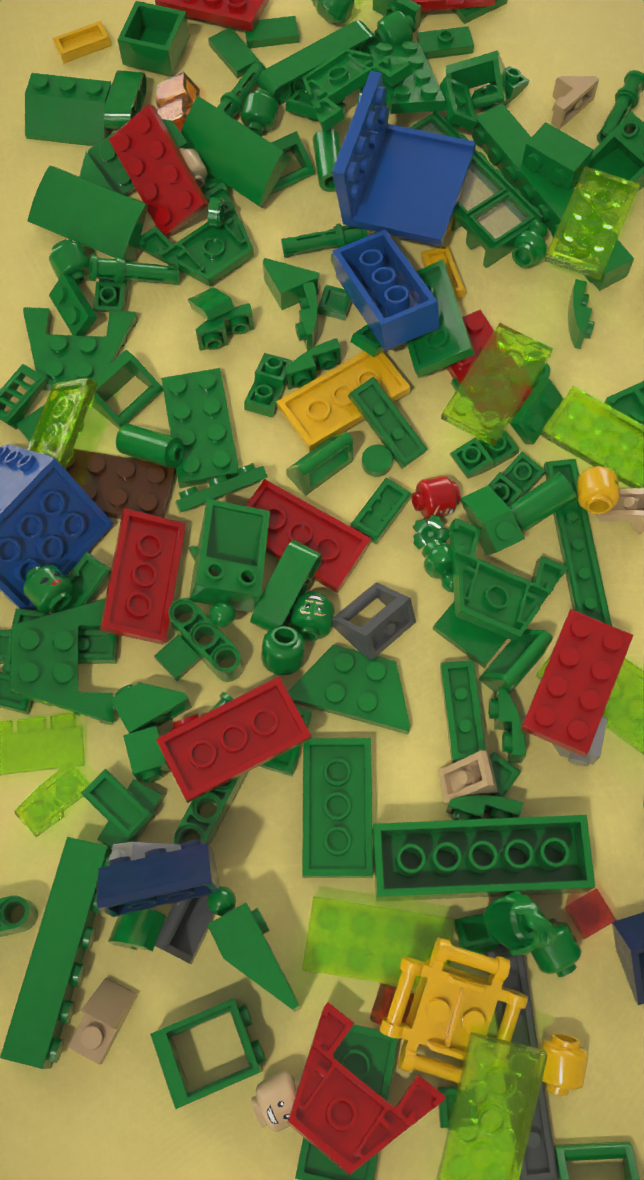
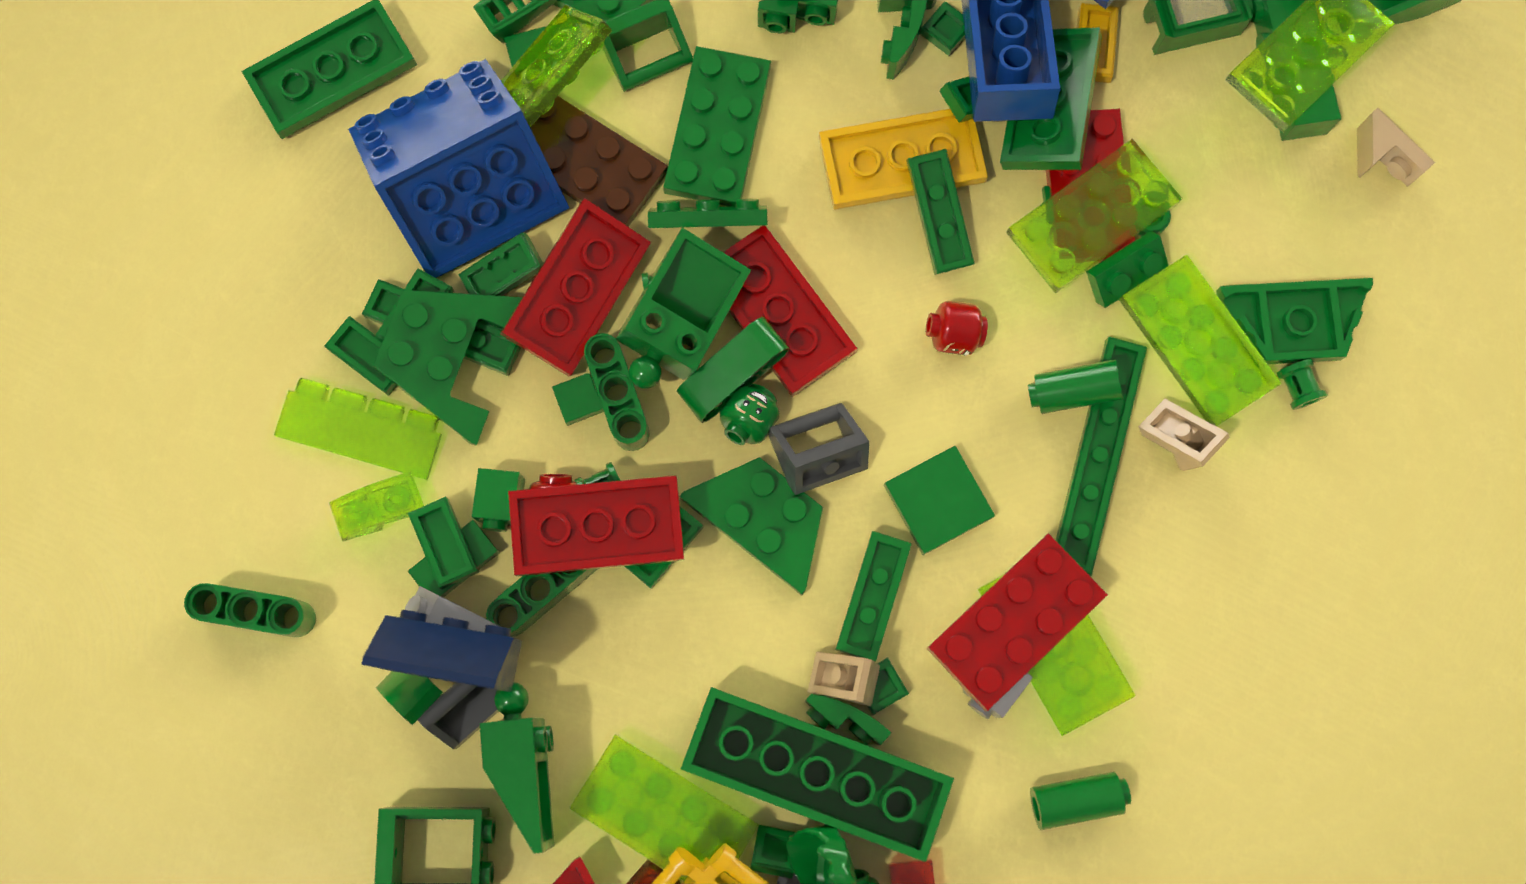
camera: 20 degrees right, 10 degrees up
(48, 589) = (460, 261): green head -> none
(57, 958) = (314, 682): green brick -> none
(102, 1020) = (338, 768): tan slope -> none
(148, 705) = (518, 444): green slope -> none
(150, 445) = (646, 129): green brick -> none
(267, 385) = (820, 105): green slope -> none
(283, 650) = (697, 443): green head -> none
(320, 357) = (868, 103): green slope -> none
(322, 463) = (840, 230): green tile -> none
(337, 808) = (683, 647): green plate -> none
(377, 460) = (908, 253): green tile -> none
(381, 510) = (885, 318): green plate -> none
(429, 531) = (931, 370): green plant -> none
(439, 563) = (927, 411): green animal -> none
(479, 456) = (1033, 298): green slope -> none
(492, 595) = (967, 479): green wing -> none
(495, 519) = (1008, 385): green slope -> none
(507, 718) = (919, 623): green slope -> none
(516, 660) = (960, 564): green tile -> none
(517, 479) = (1057, 347): green slope -> none
(530, 246) = (1219, 48): green animal -> none
(579, 315) = (1237, 166): green slope -> none
(598, 490) = (1152, 400): yellow head -> none

